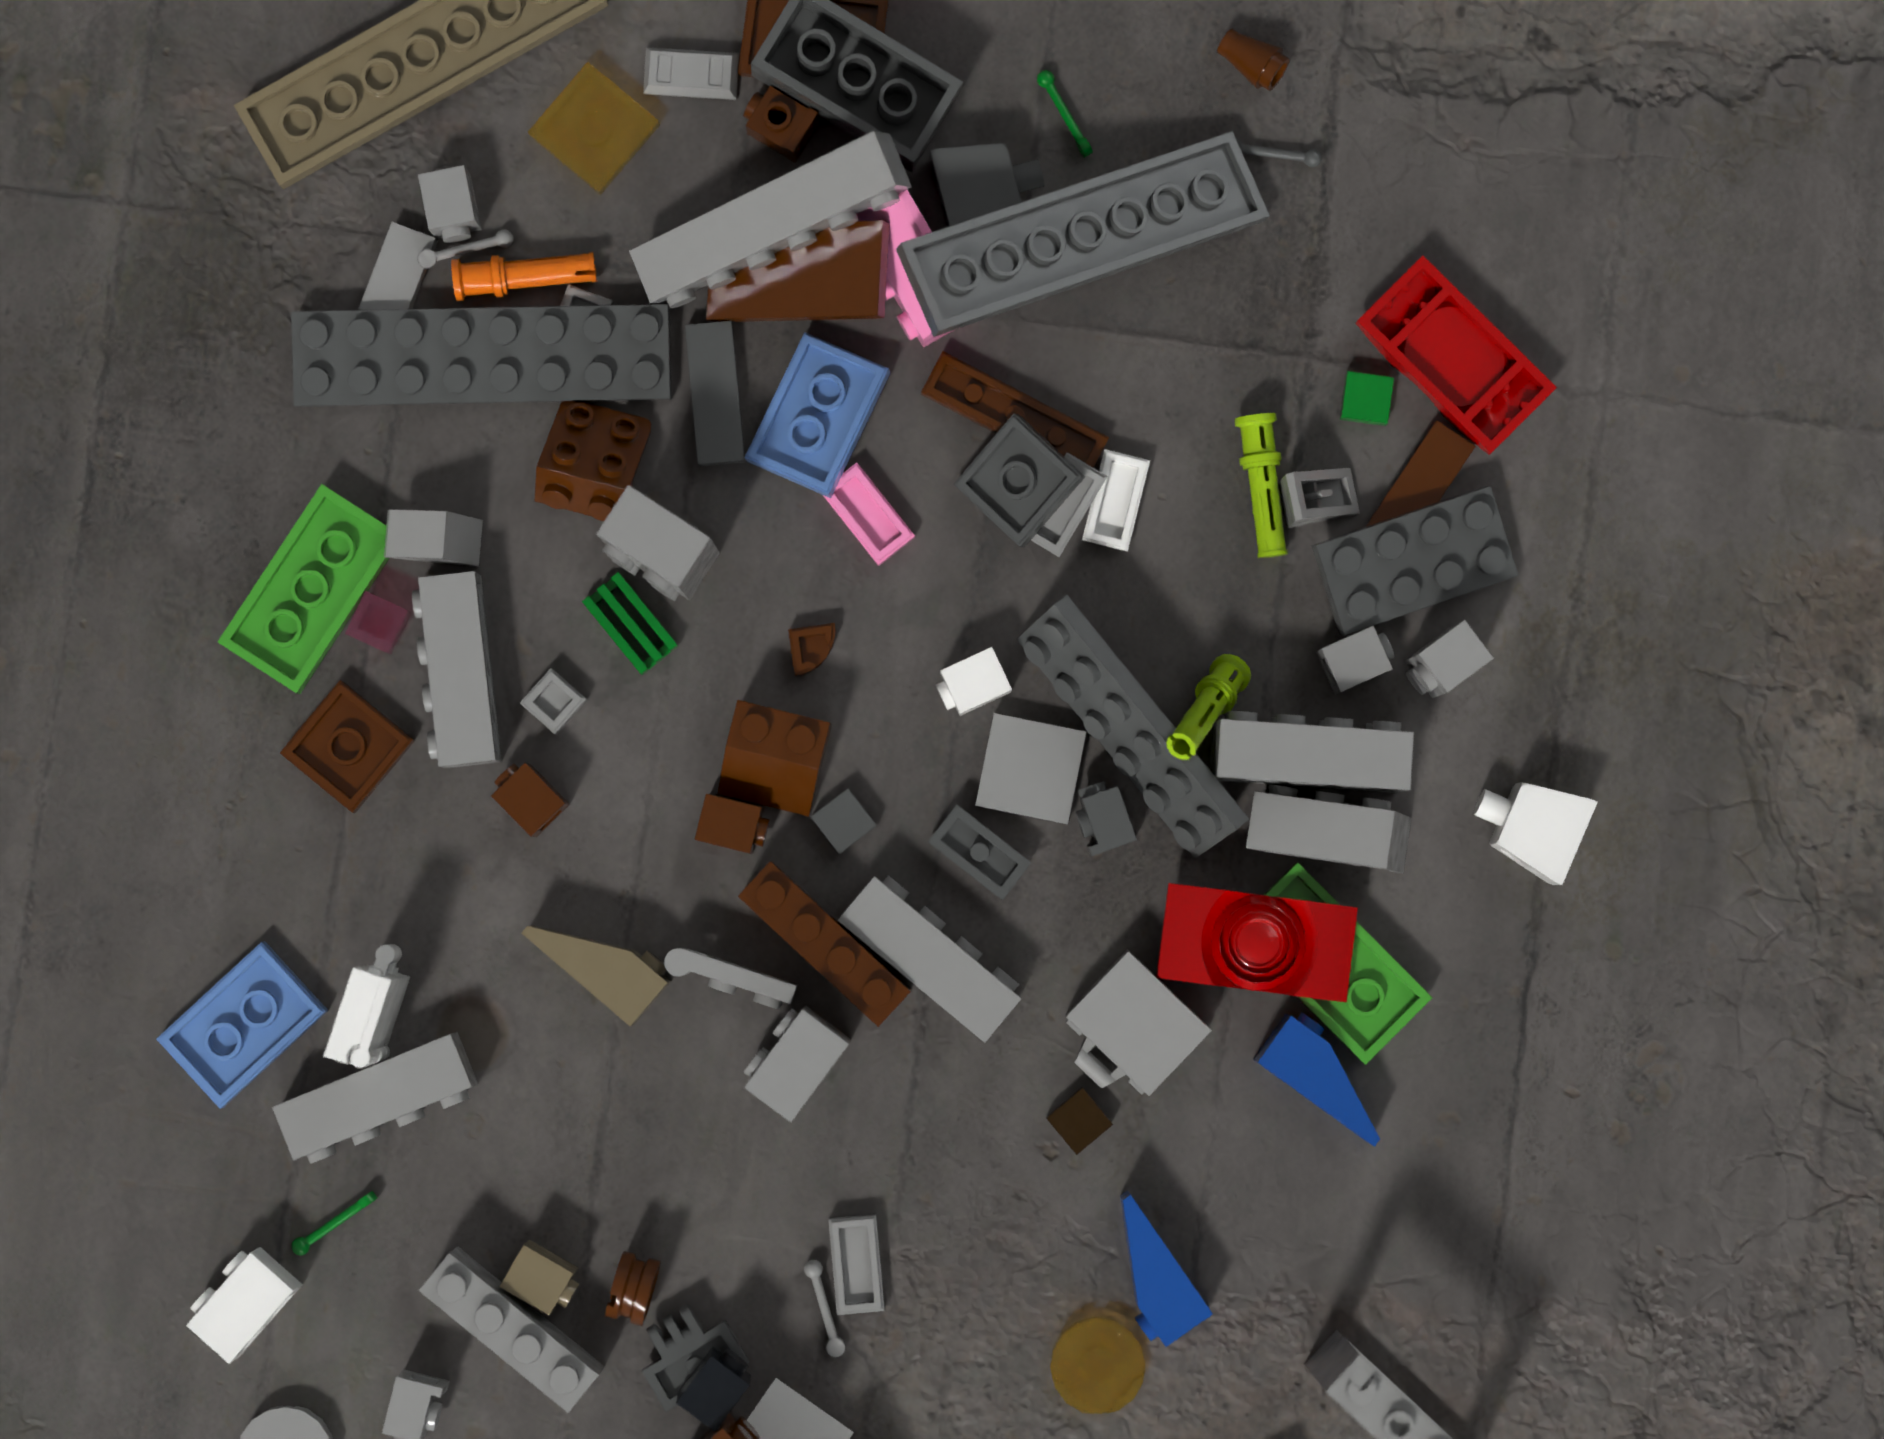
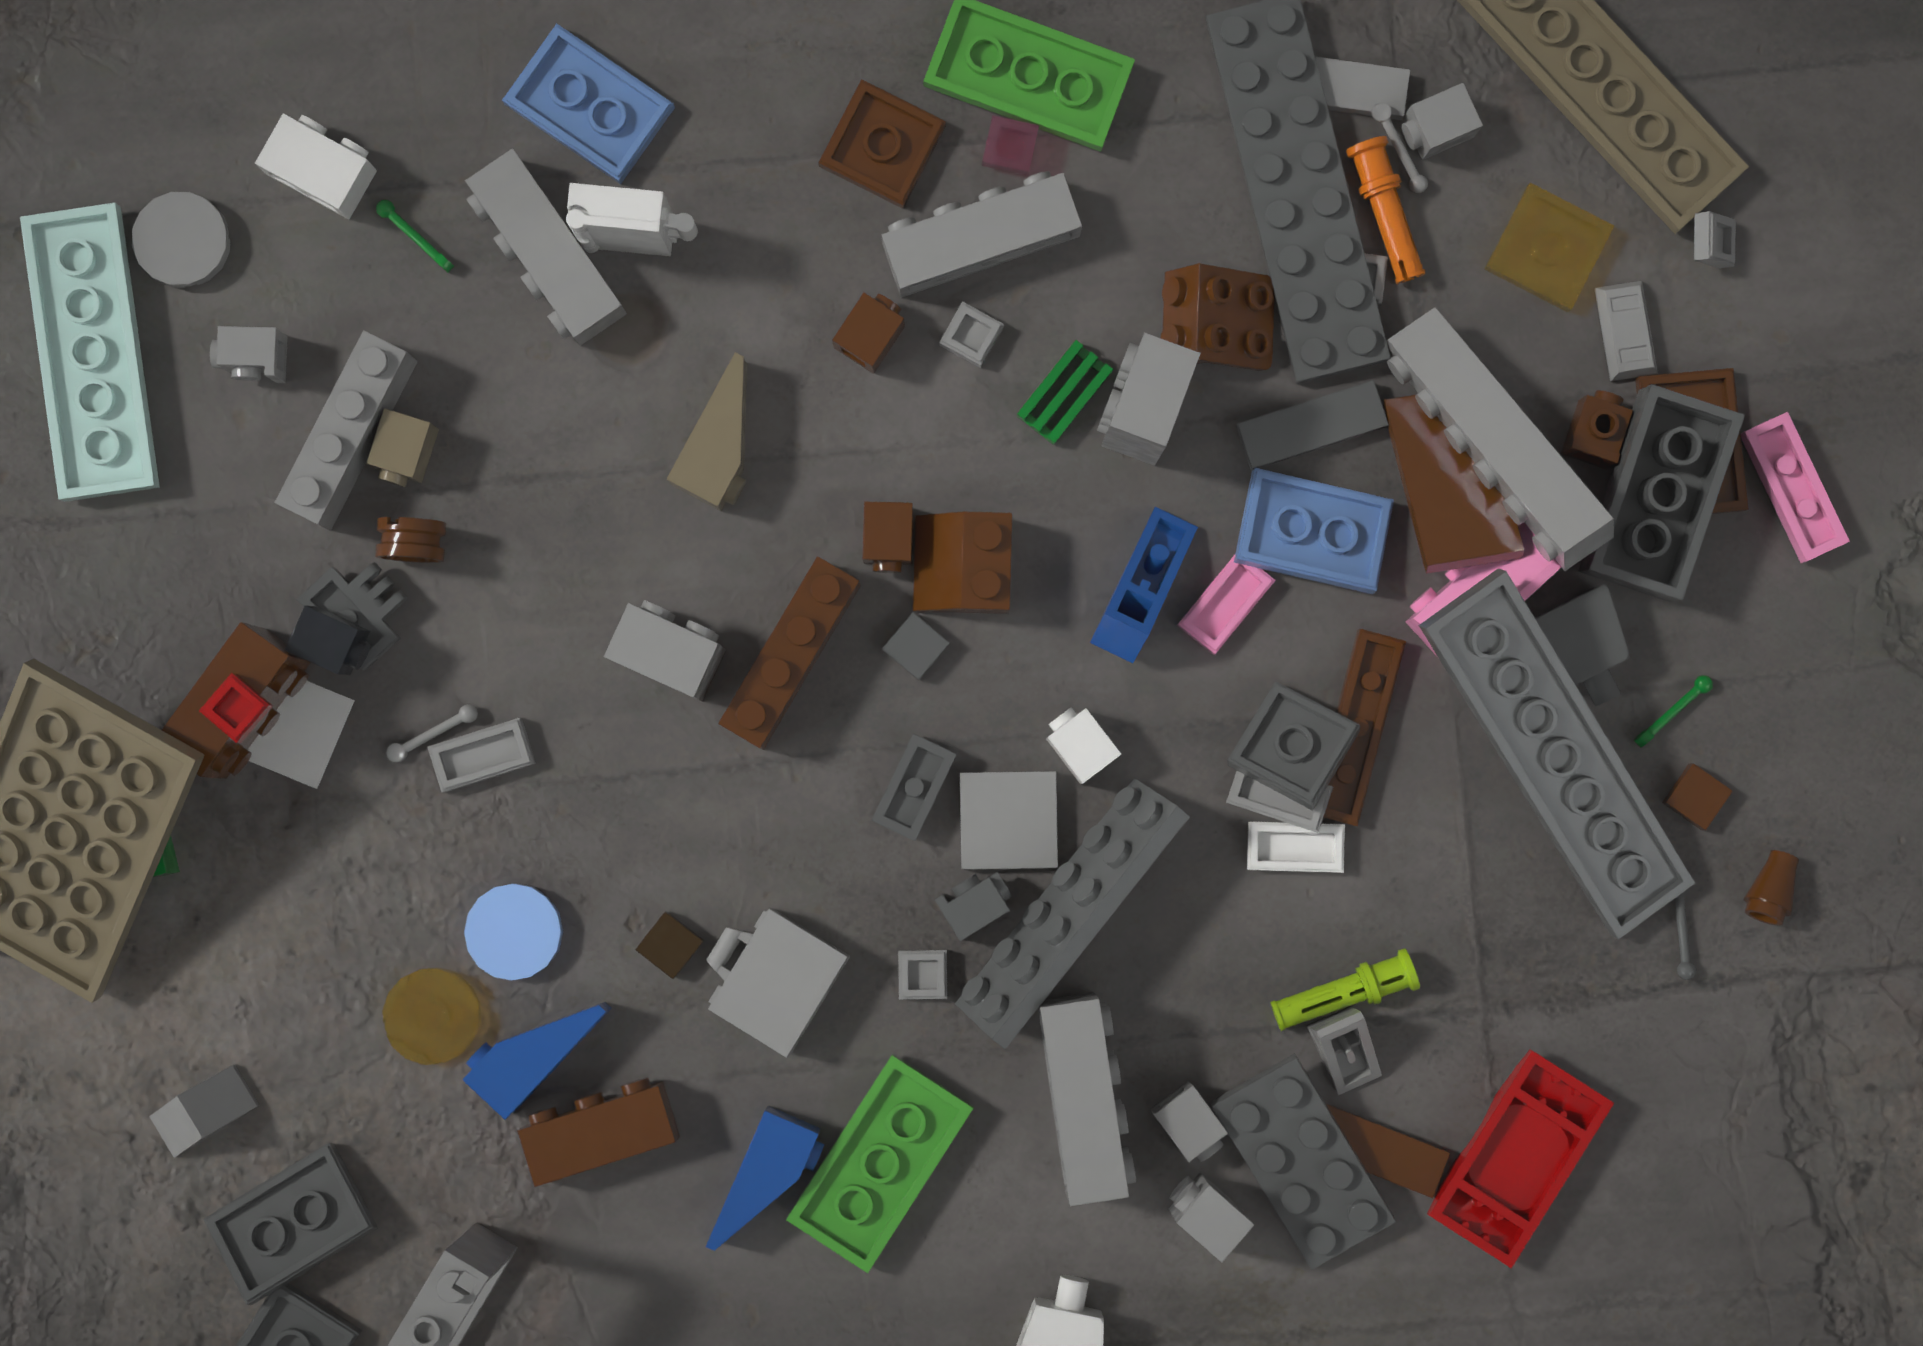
camera: 75 degrees right, 0 degrees up
(433, 537) = (1106, 180): light grey slope -> none
(728, 976) = (737, 566): light grey plate -> none
(811, 646) = (1081, 575): reddish brown tile -> none
(834, 588) = (1144, 585): none -> blue slope
(929, 958) = (798, 760): light grey brick -> none
(1033, 1269) = (513, 931): none -> light blue tile
(1151, 109) = (1697, 796): none -> reddish brown tile
(1154, 878) = (922, 974): none -> light grey tile
(1214, 697) = (1121, 987): lime pin -> none
(1243, 1227) = (598, 1131): none -> reddish brown brick
(1257, 942) = (884, 1084): red slope -> none
(1329, 829) = (1013, 1132): light grey wedge -> none
(1366, 398) = (1455, 1077): green tile -> none

